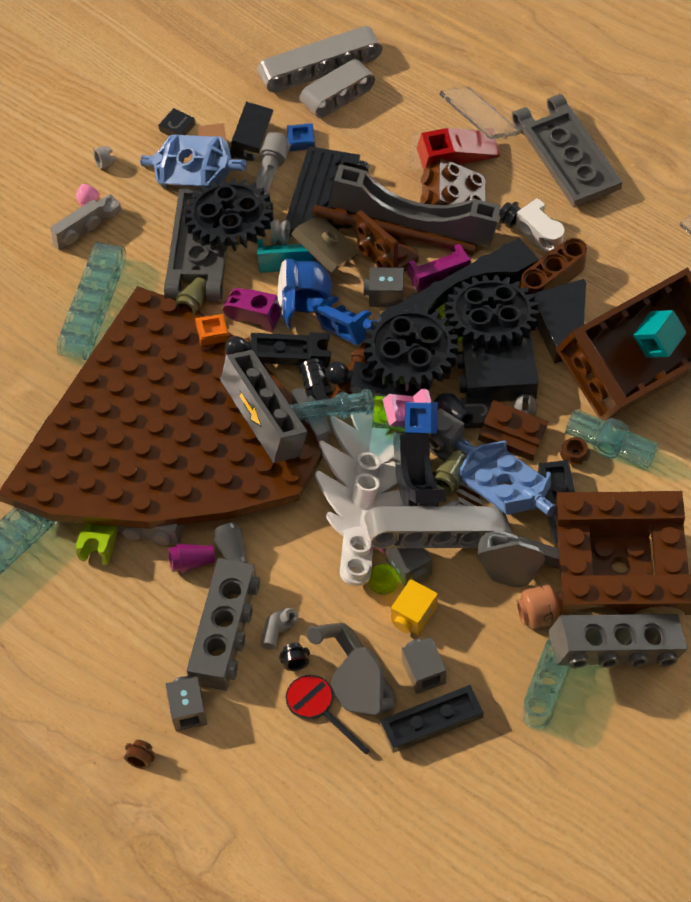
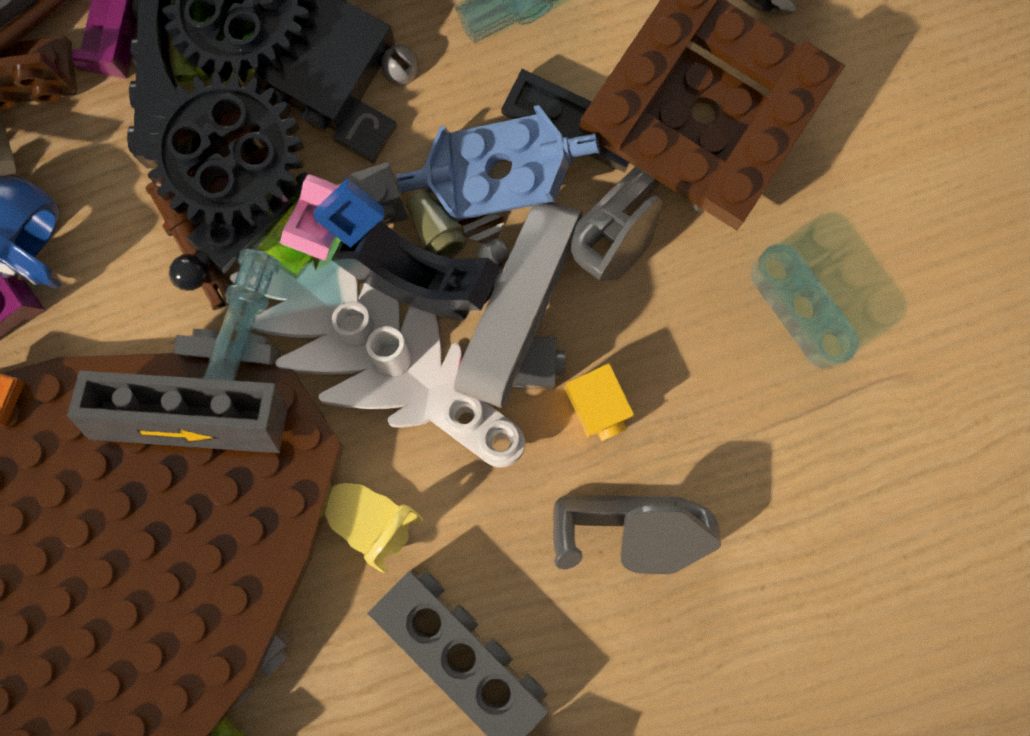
camera: 60 degrees left, 25 degrees up
(189, 557) = (330, 641): magenta cone -> none
(230, 542) = (349, 576): dark grey cone -> none
(267, 538) = (369, 522): none -> light yellow piece
(276, 625) = (501, 587): light grey arm -> none
(283, 348) = (90, 320): black plate -> none
(294, 657) = (563, 593): black plate -> none
(311, 698) = (629, 607): piece -> none
(315, 379) = (176, 307): black hinge -> none
(342, 321) = (107, 205): blue hinge -> none
(383, 579) = (529, 410): clear neon green plate -> none
(384, 286) = (87, 115): dark grey brick -> none
(423, 664) = (683, 441): dark grey brick -> none
(431, 718) = (759, 479): black plate -> none
(454, 407) = (347, 157): black cone -> none
(519, 429) = (425, 101): reddish brown plate -> none
(539, 606) = (698, 246): nougat head -> none
(575, 445) = (513, 40): reddish brown plate -> none
(617, 640) = (820, 192): dark grey brick -> none

